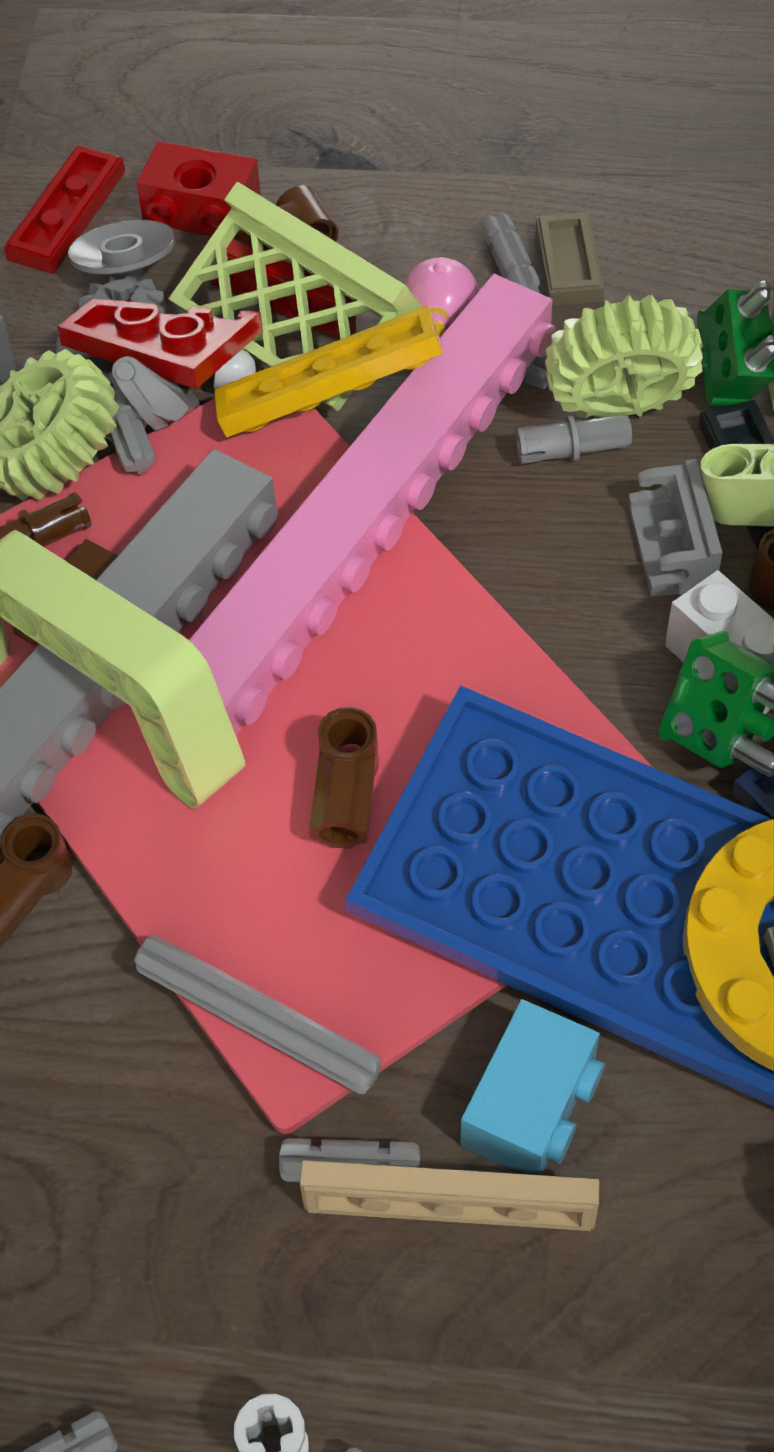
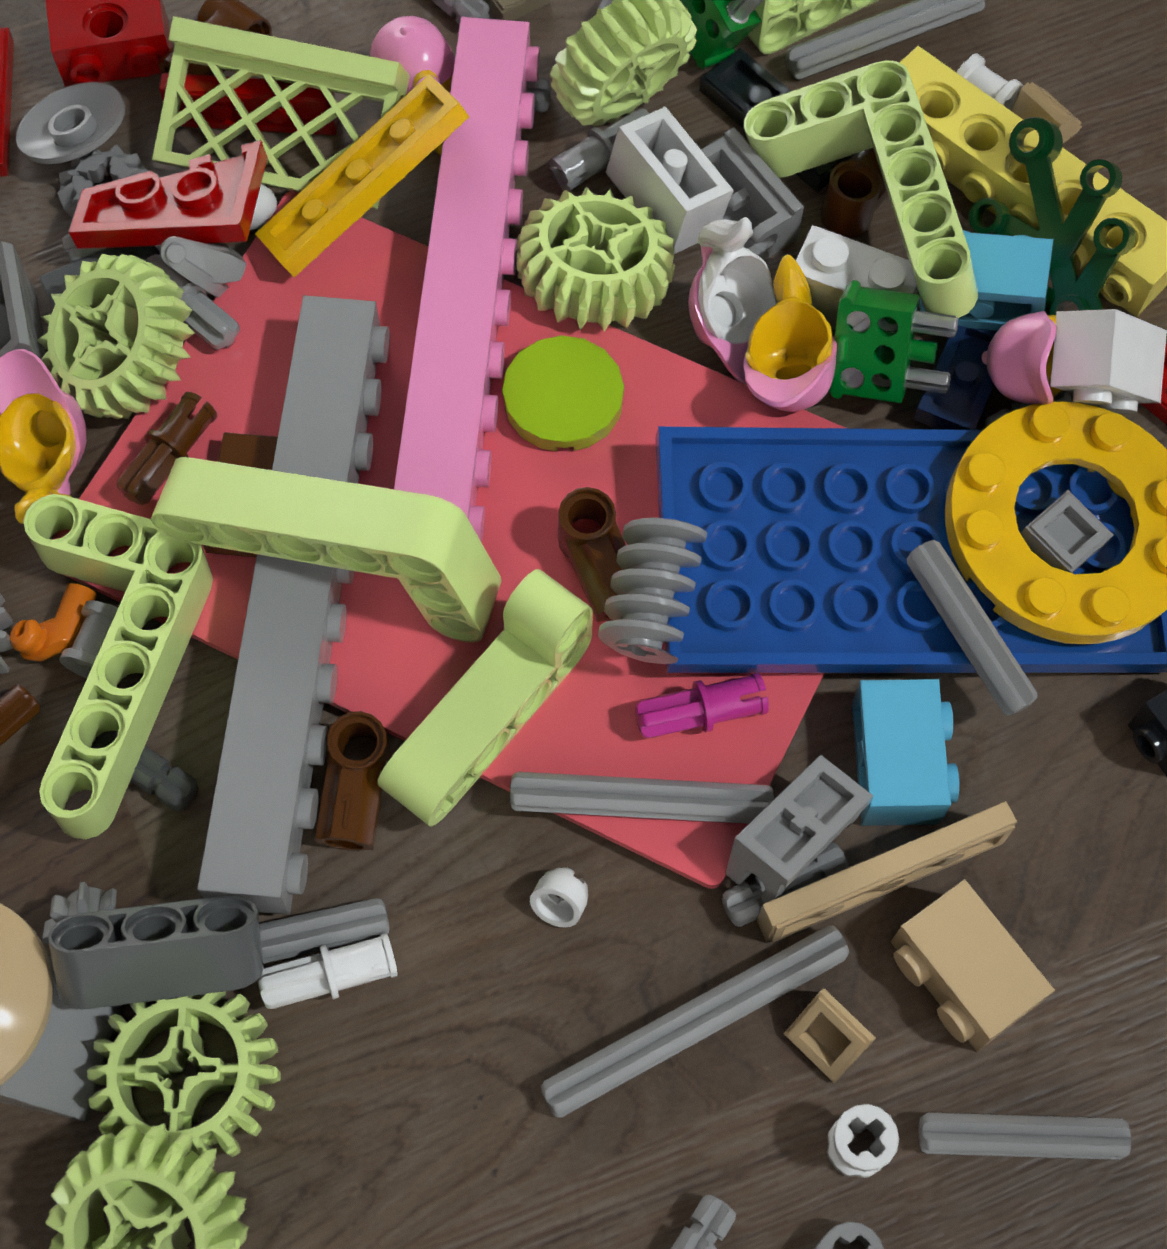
camera: 30 degrees left, 10 degrees up
(133, 1070) = (572, 901): none -> white hinge
(171, 861) = (474, 722): none -> yellowish green beam
(190, 1245) = (694, 1021): none -> light grey axle
(308, 1324) = (829, 1035): none -> tan slope
(356, 815) = (648, 586): none -> light grey piece
(358, 955) = (701, 706): none -> dark pink axle
(379, 1102) = (796, 827): none -> light grey hinge
(403, 628) = (563, 393): none -> lime tile
(479, 1326) = (969, 966): none -> tan brick
(502, 525) = (595, 258): none -> yellowish green gear
(607, 616) = (729, 291): none -> white hair
(609, 484) = (669, 173): none -> white brick
(633, 671) = (790, 346): none -> yellow hair
(658, 1000) = (971, 628): none -> light grey axle

